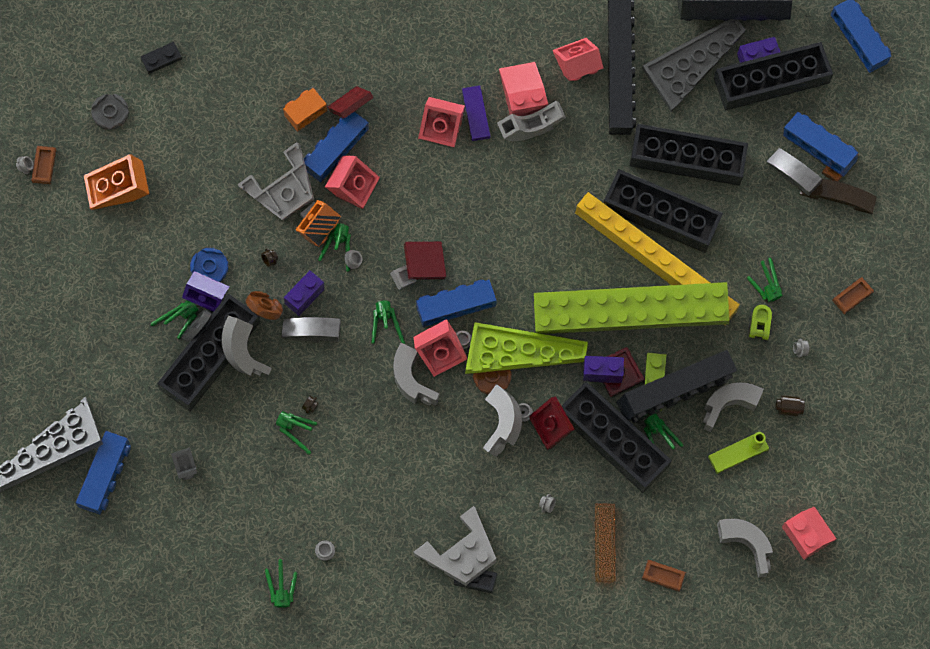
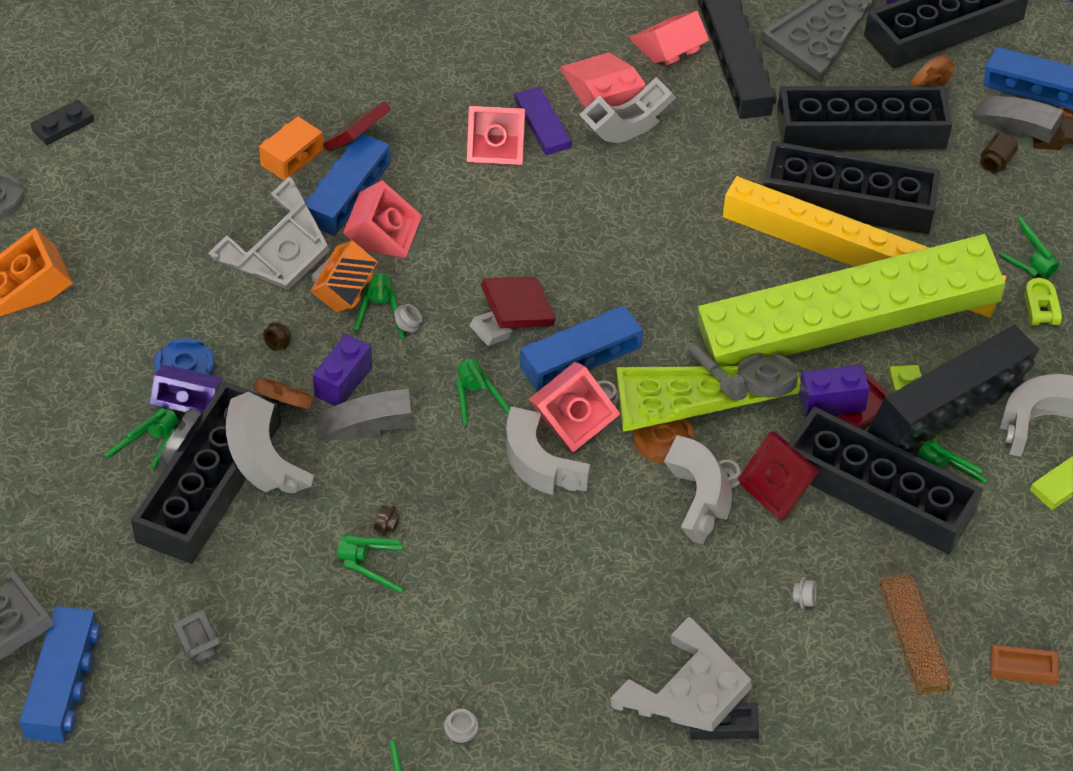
camera: 10 degrees left, 20 degrees down
(540, 352) = (732, 386): none -> dark grey piece
(565, 348) = (768, 375): none -> dark grey tile
(741, 132) = (934, 73): none -> dark orange tile
(772, 197) = (998, 153): none -> dark brown brick

